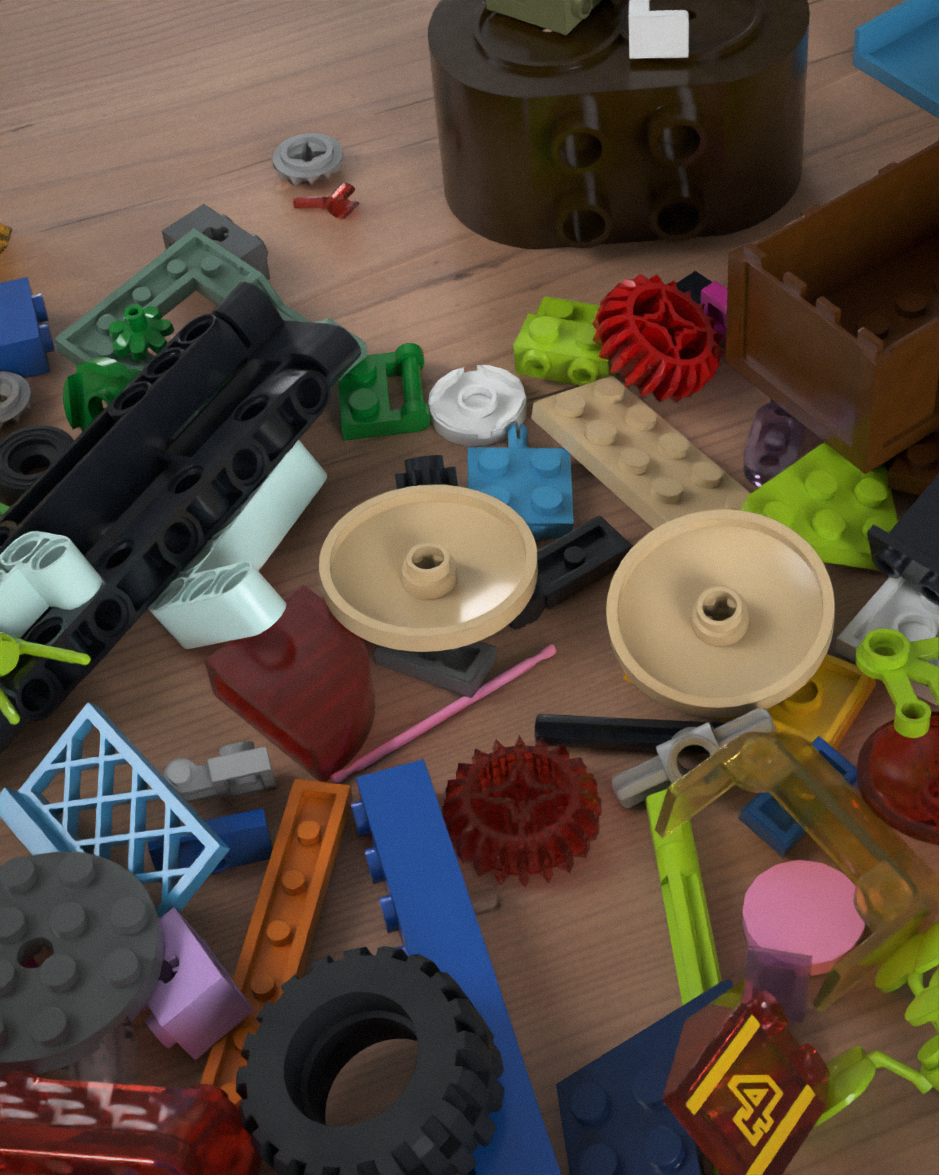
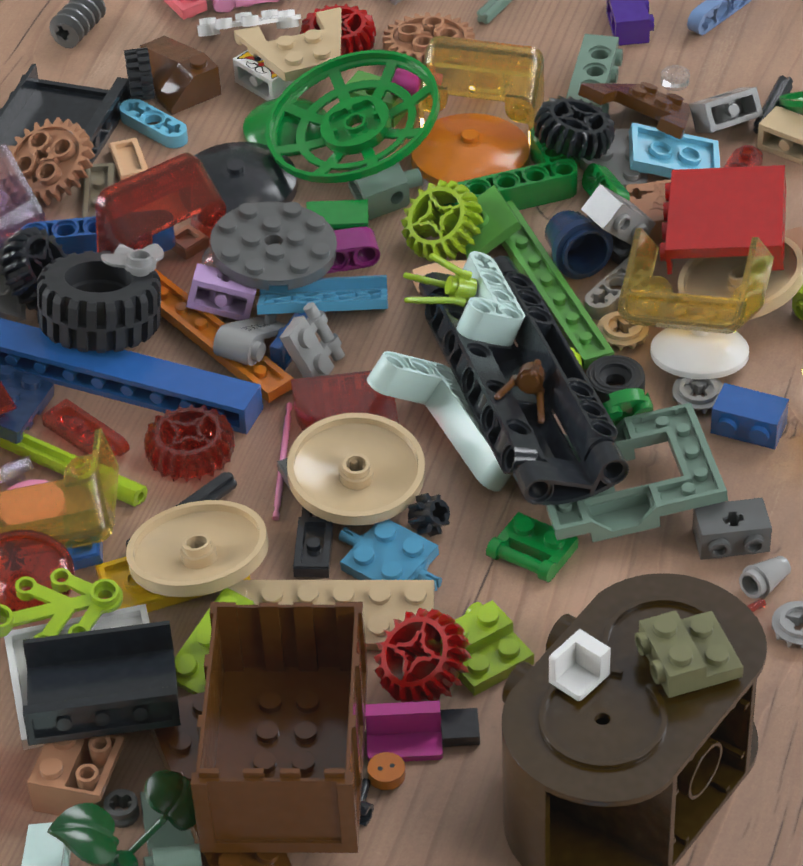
camera: 125 degrees right, 5 degrees down
(139, 332) = (653, 432): green plant -> none
(143, 462) = (530, 381): none -> reddish brown plant
(258, 1052) = (138, 261): none -> light grey plate
(265, 204) = (763, 577): none -> light grey cone
(277, 859) = (245, 338): none -> light grey door
(477, 405) = (479, 579): white tile -> none
(612, 965) = (79, 428): none -> clear red plate
(664, 770) = (141, 506): light grey axle -> none

